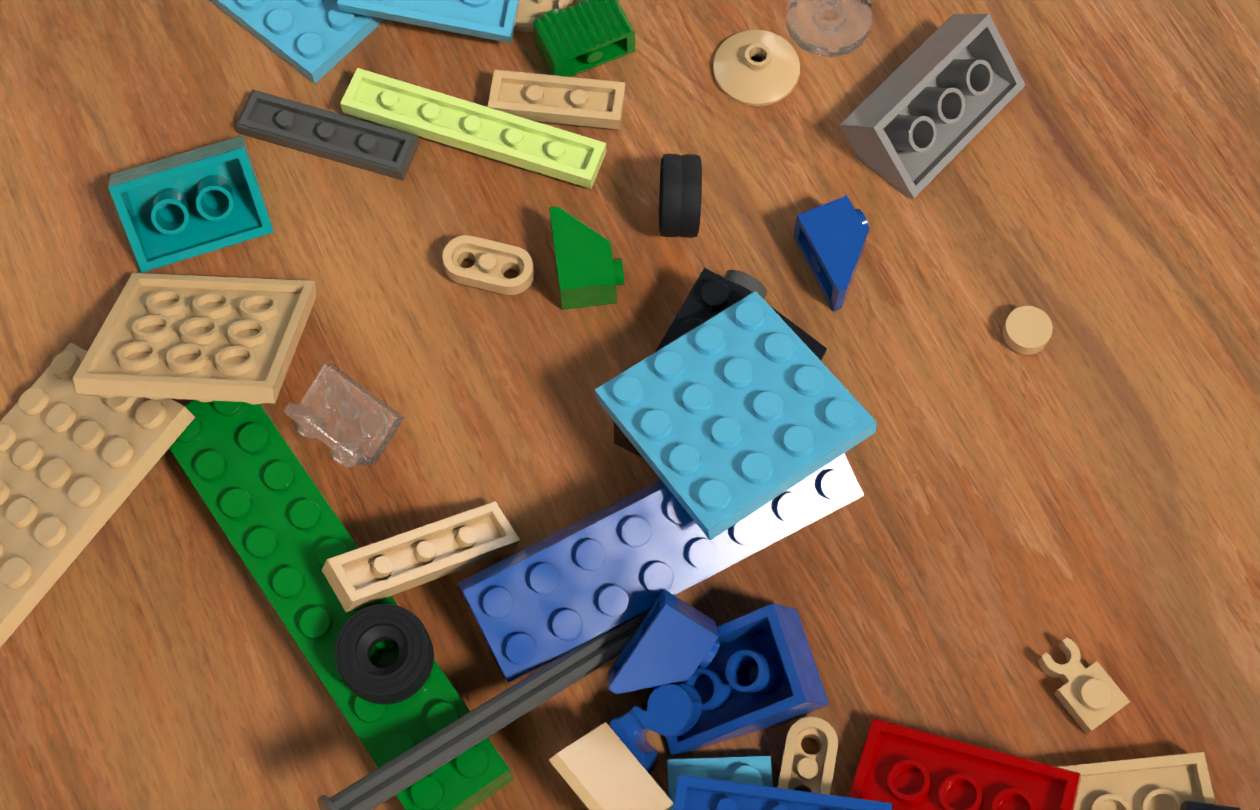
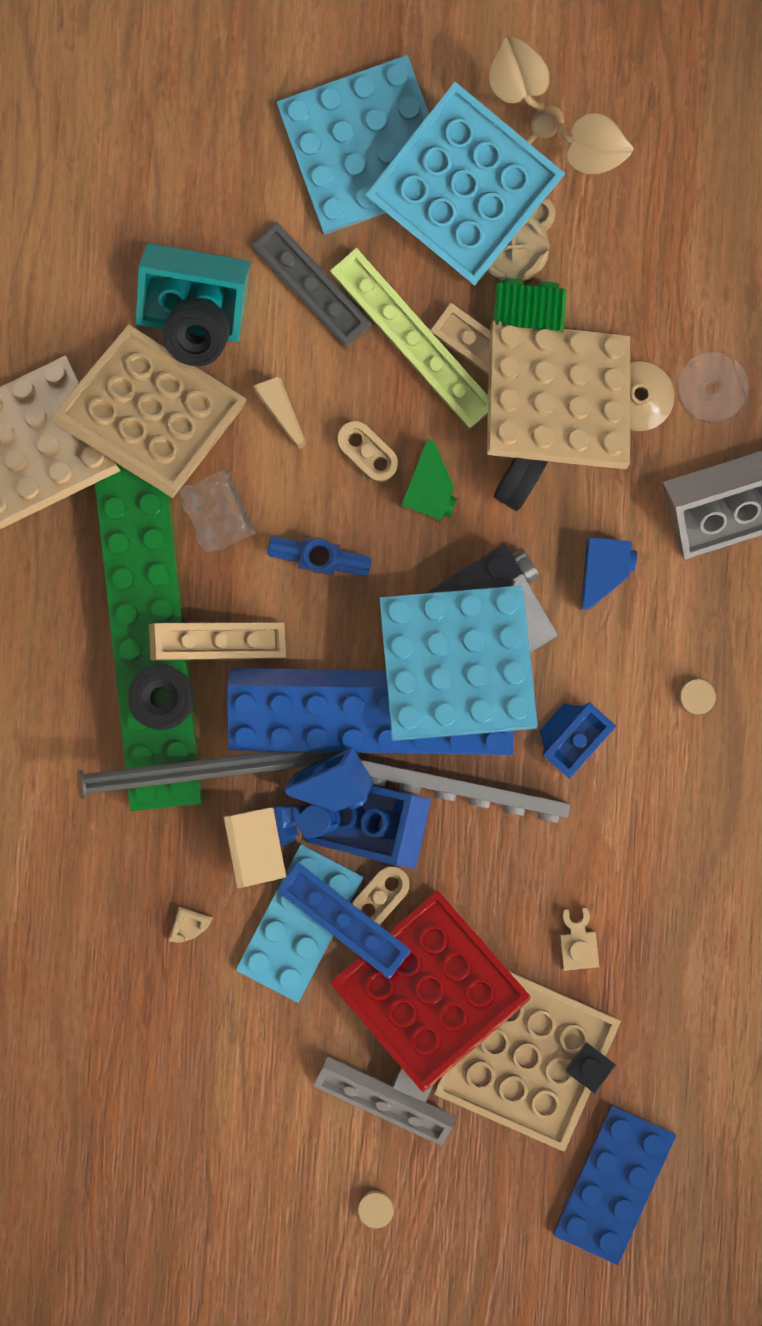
camera: 30 degrees right, 20 degrees up
(201, 256) = (203, 314): none -> black tyre
(355, 266) = (277, 402): none -> tan slope
(471, 410) = (300, 552): none -> blue axle
(671, 92) = (559, 396): none -> tan plate
(848, 571) = (479, 794): none -> light grey plate
(919, 444) = (573, 736): none -> blue slope

